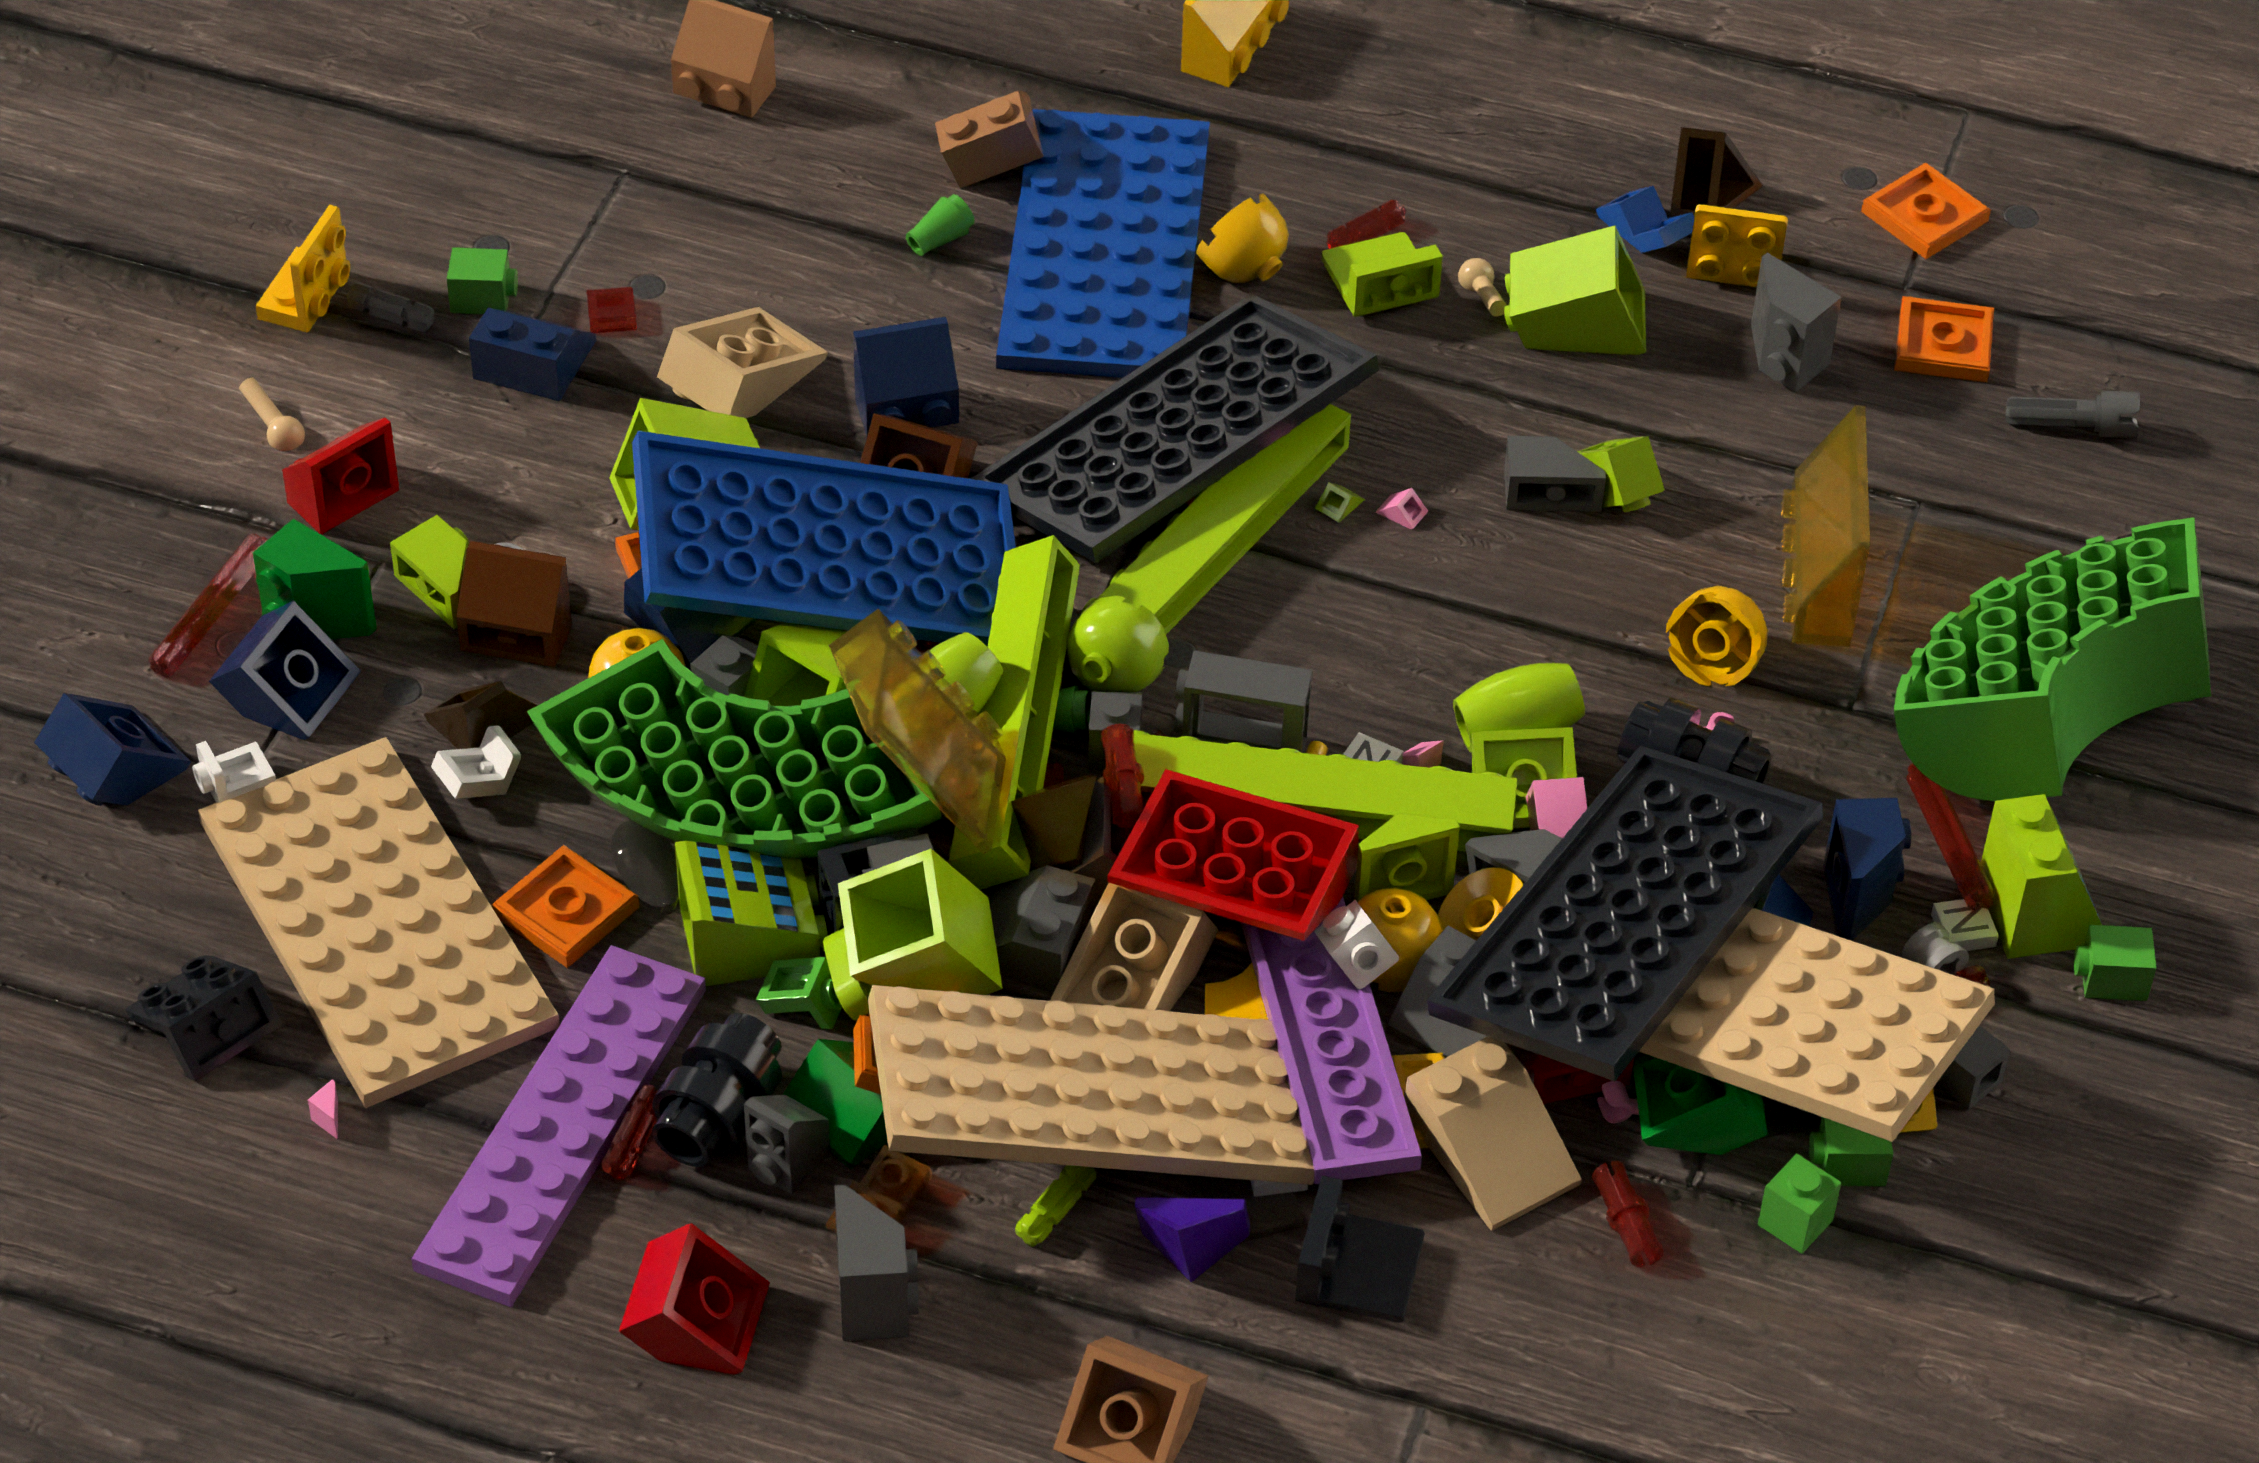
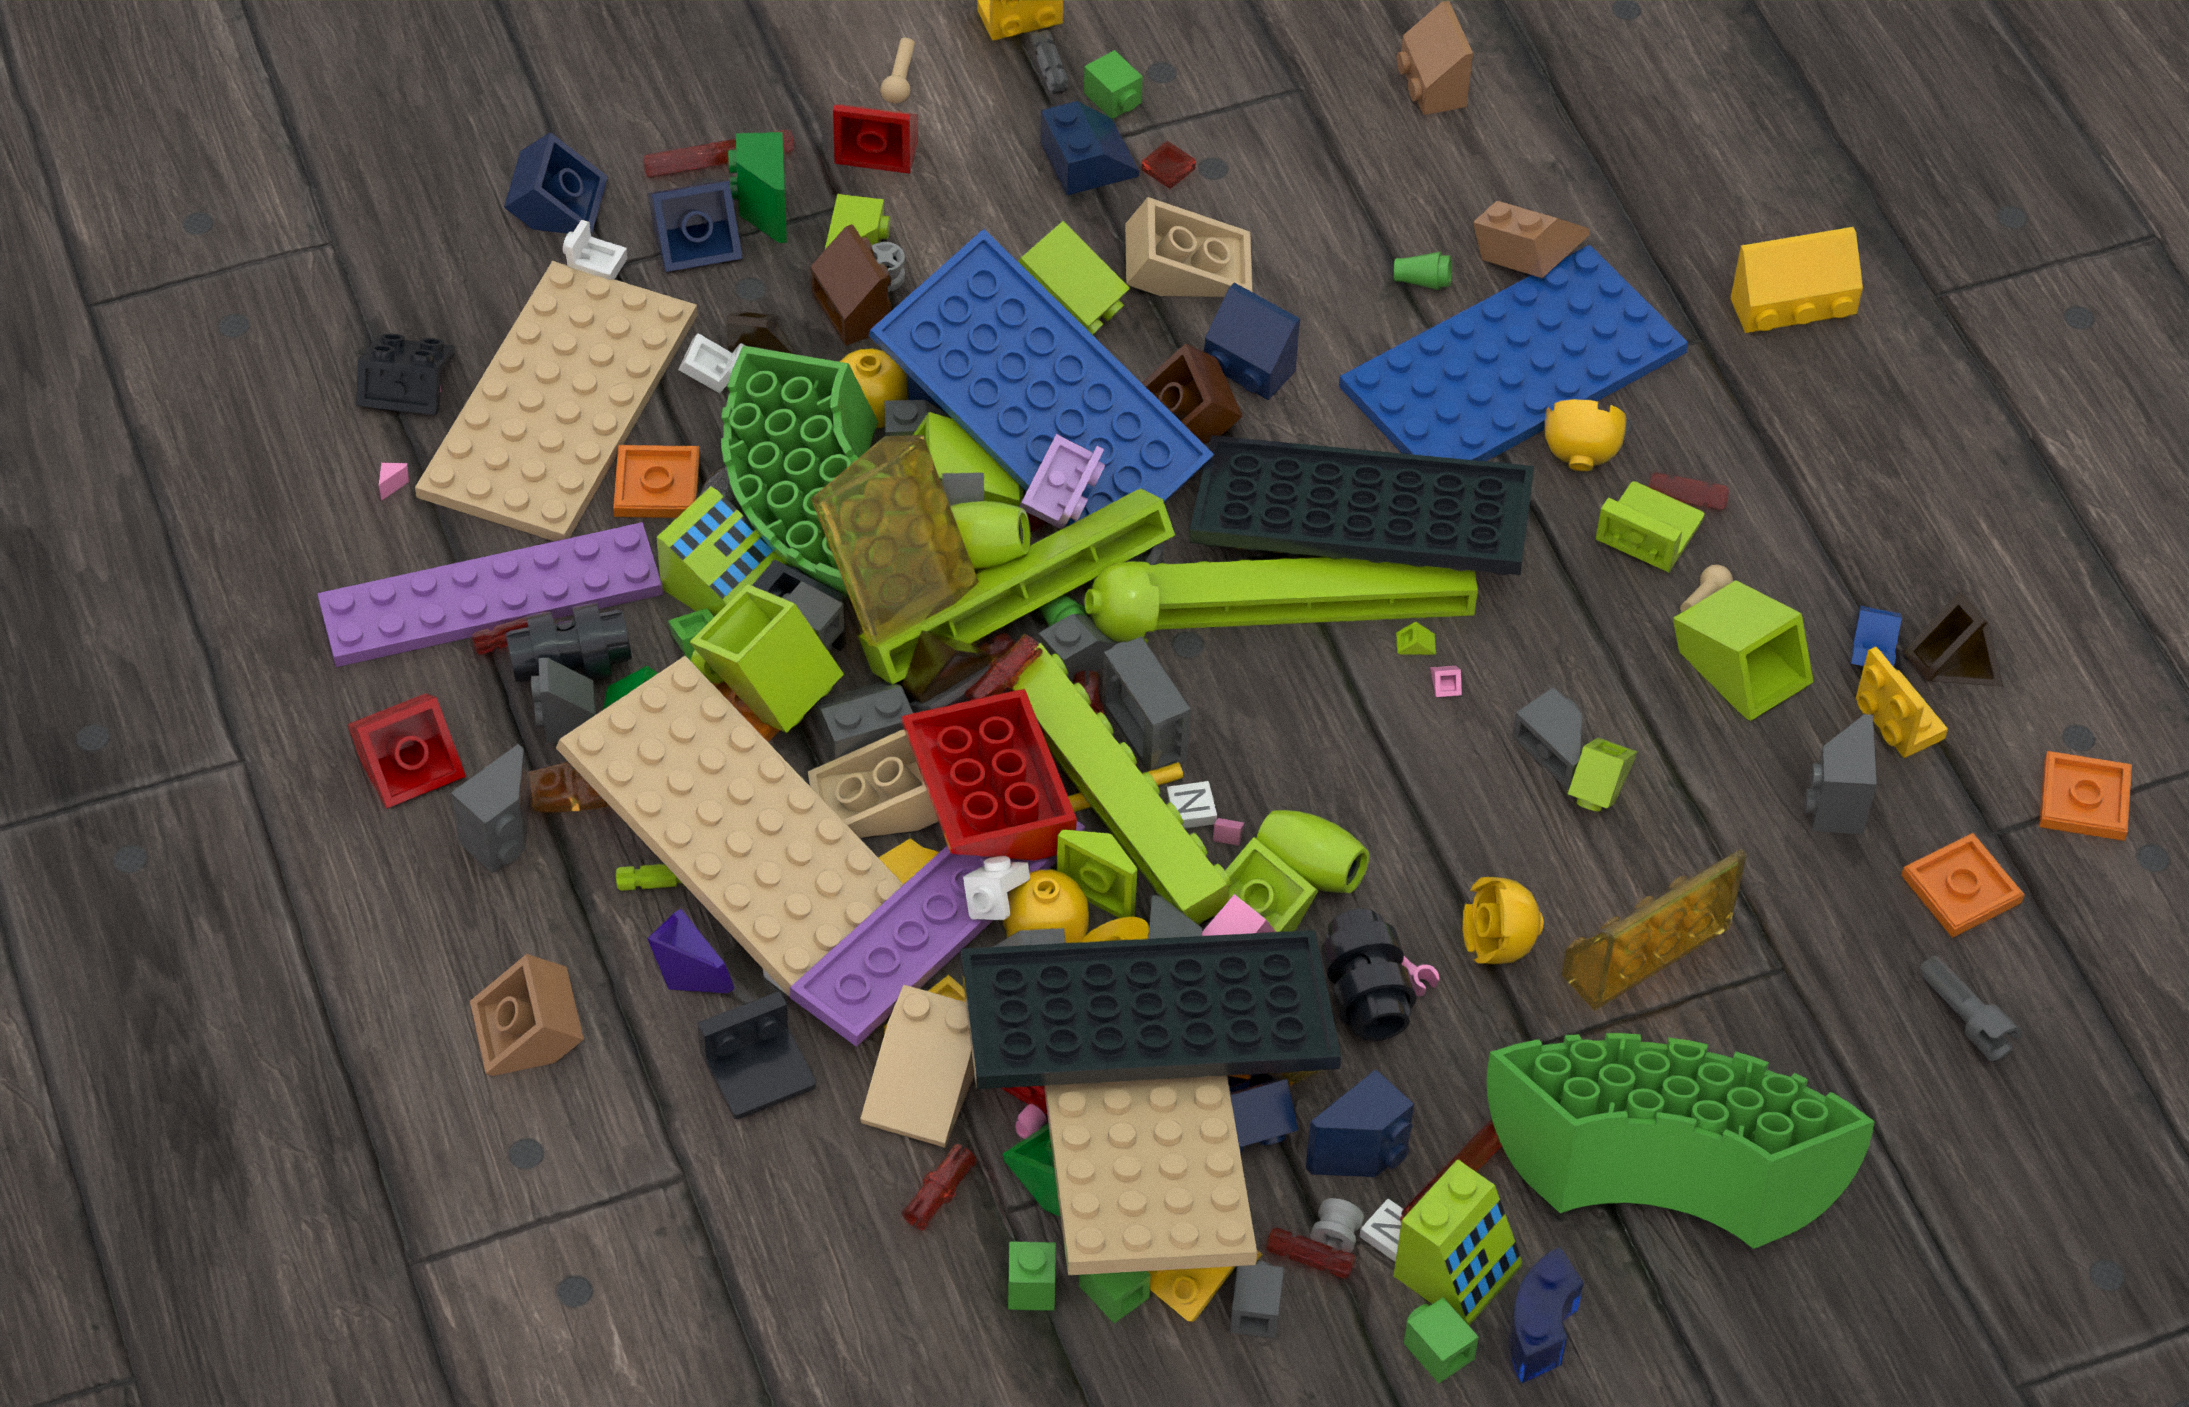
camera: 50 degrees right, 5 degrees up
(945, 592) = (1061, 481): none -> lavender bracket
(2154, 877) = (1542, 1304): none -> clear blue brick

